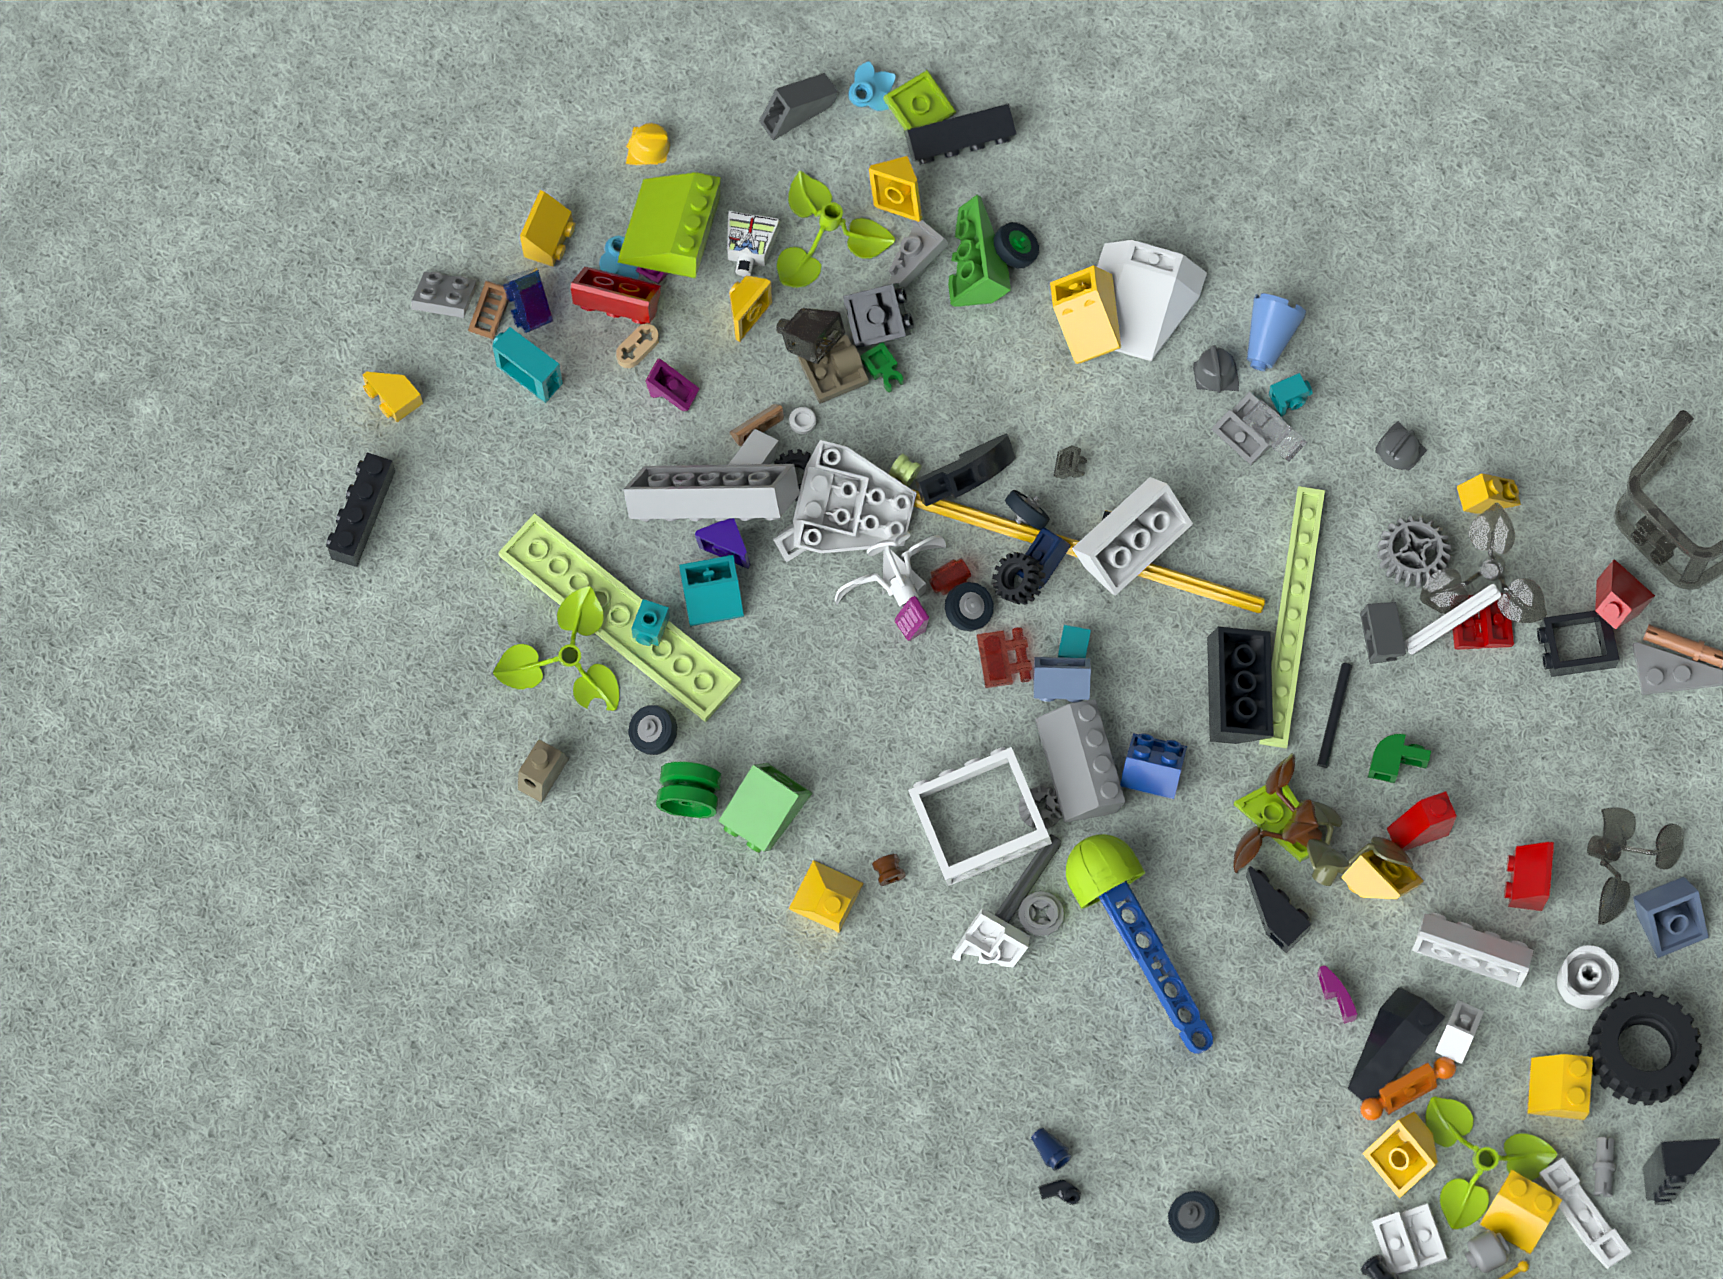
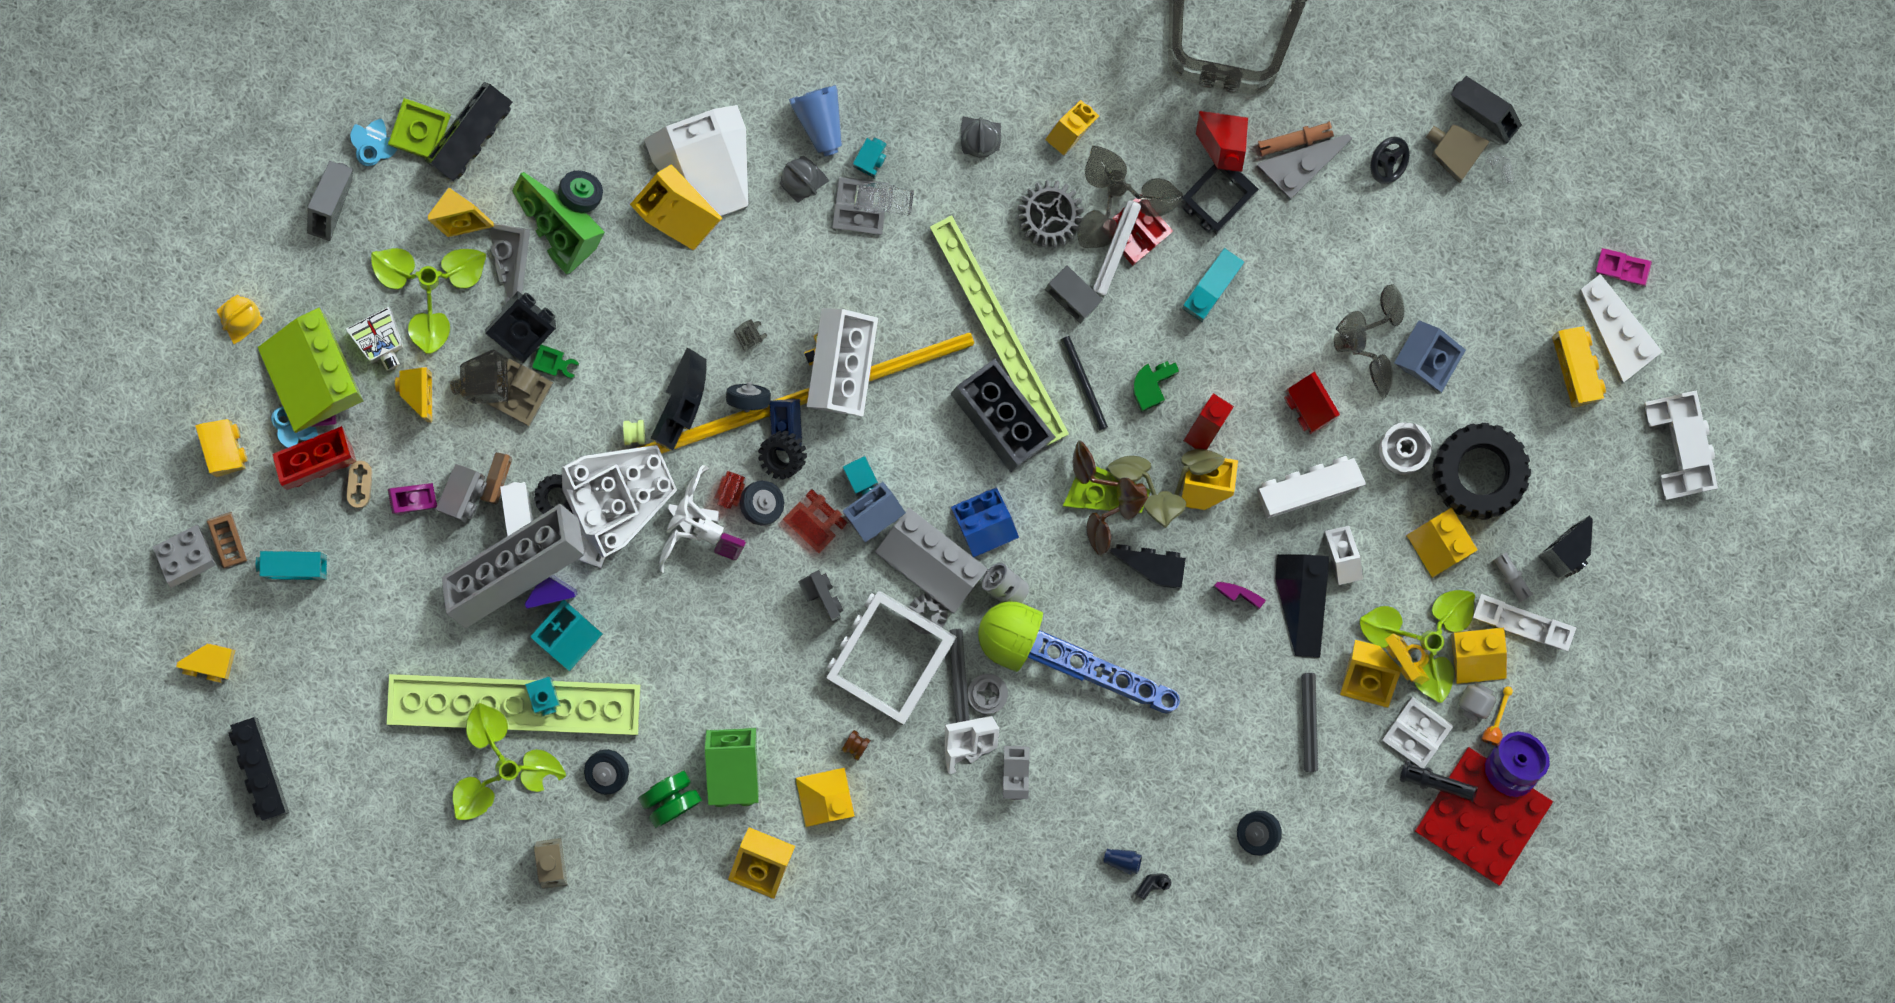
camera: 40 degrees left, 15 degrees up
(529, 300) = (253, 516): clear blue slope -> none
(717, 412) = (461, 493): none -> light grey slope
(724, 907) = (761, 862): none -> yellow slope
(802, 420) = (527, 449): white tile -> none
(961, 708) = (818, 586): none -> dark grey plate
(1013, 997) = (1016, 772): none -> light grey brick
(1129, 824) = (1005, 584): none -> light grey wheel
(1316, 1156) = (1309, 722): none -> dark grey axle
(1408, 1088) = (1339, 623): orange plate -> none
(1450, 1155) = (1402, 652): none -> yellow plate
(1513, 714) = (1213, 285): none -> teal slope

